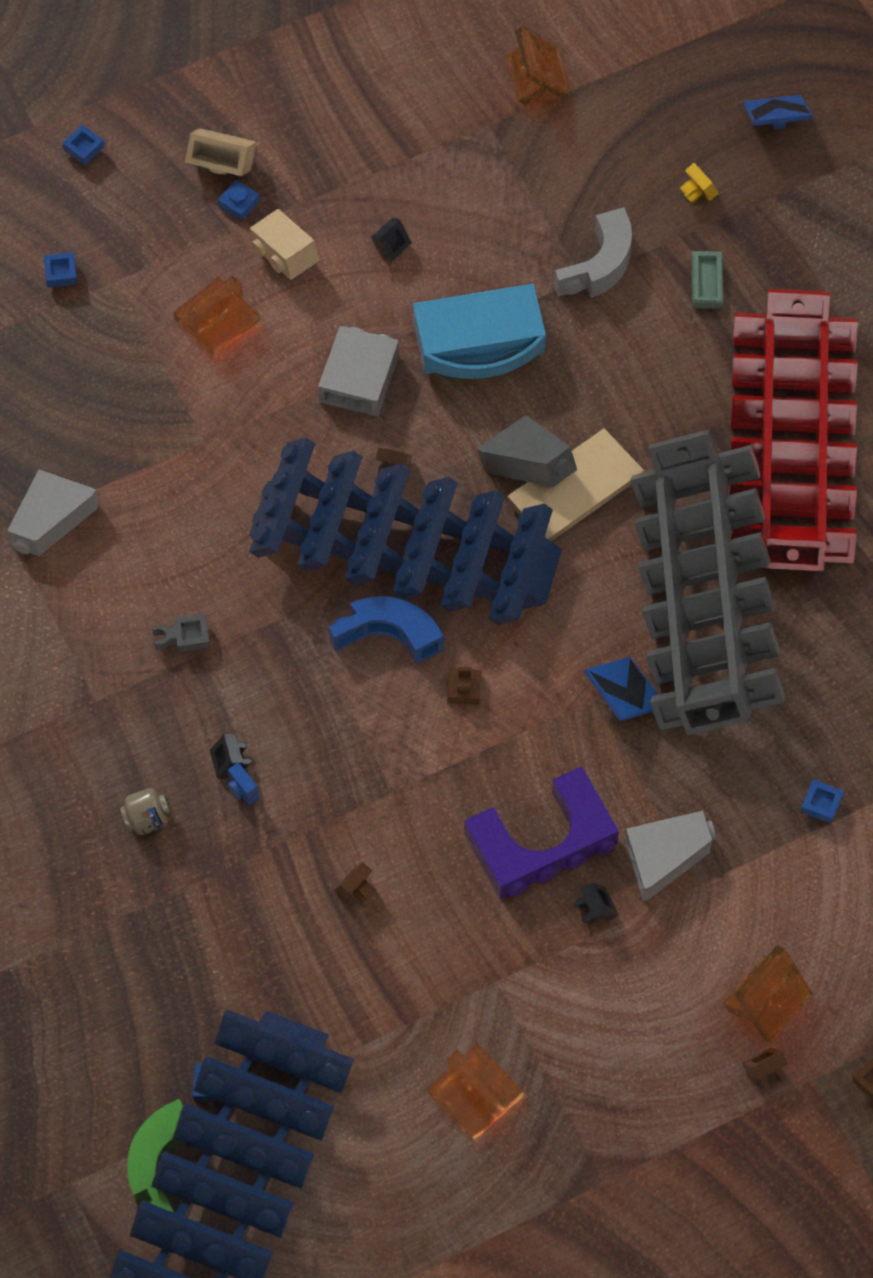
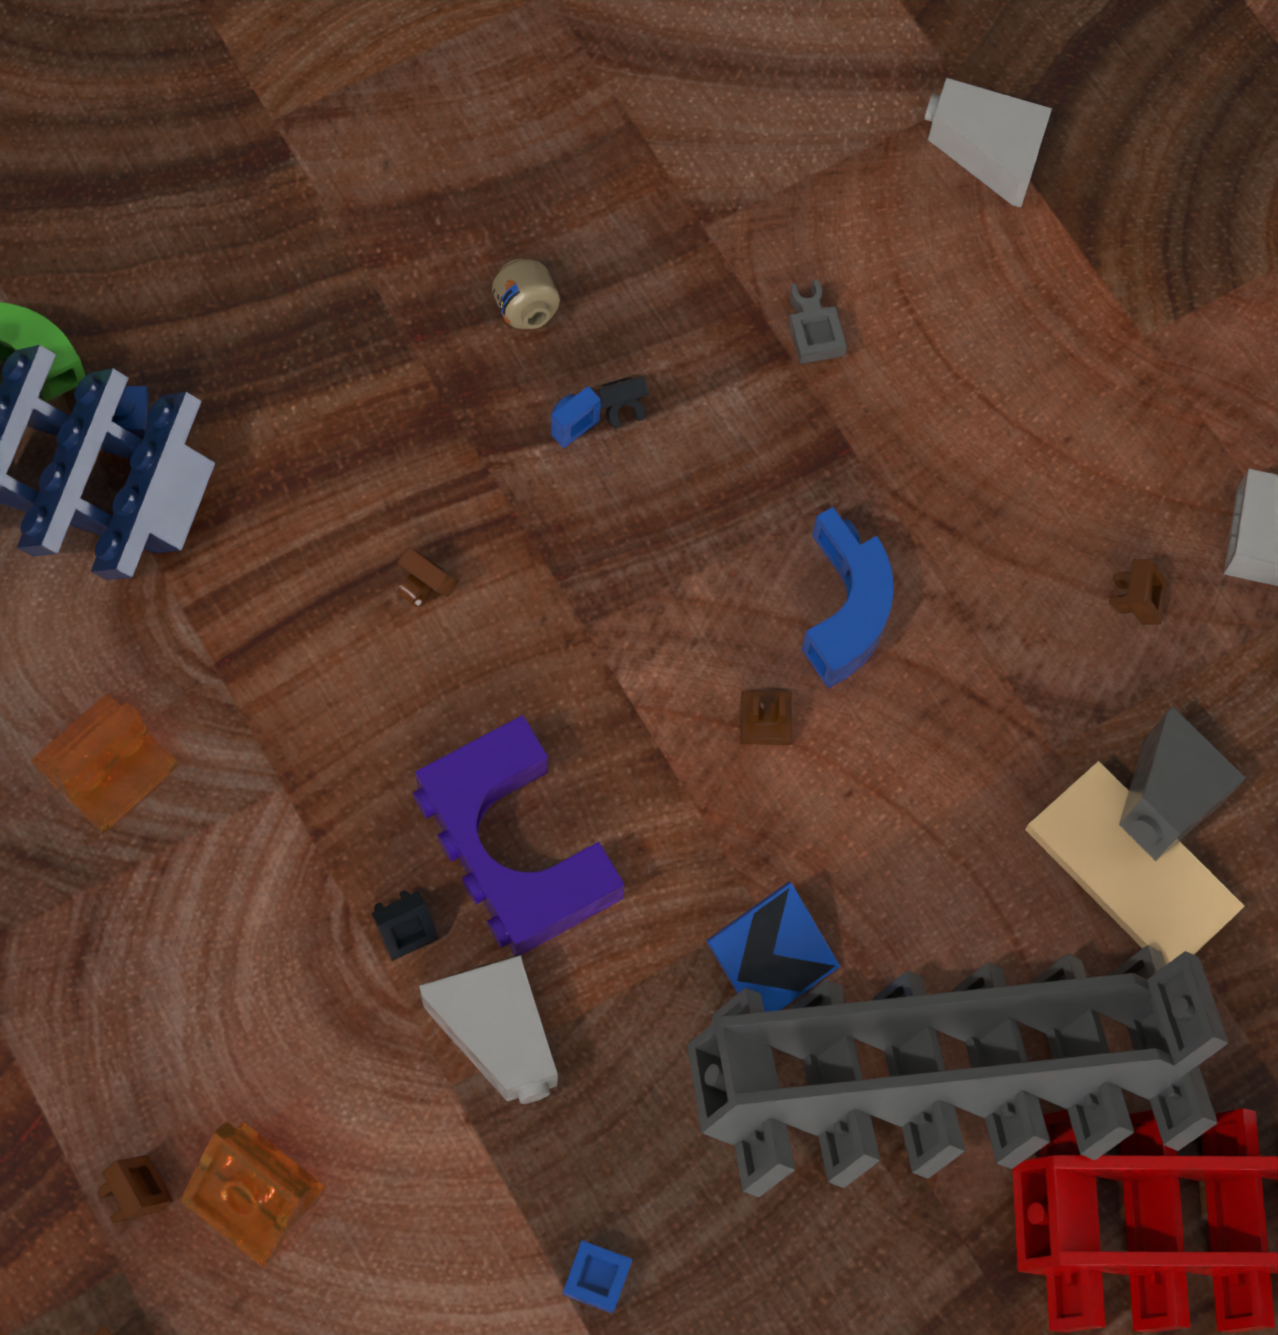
camera: 80 degrees right, 5 degrees up
(523, 580) = (968, 793): dark blue piece -> none

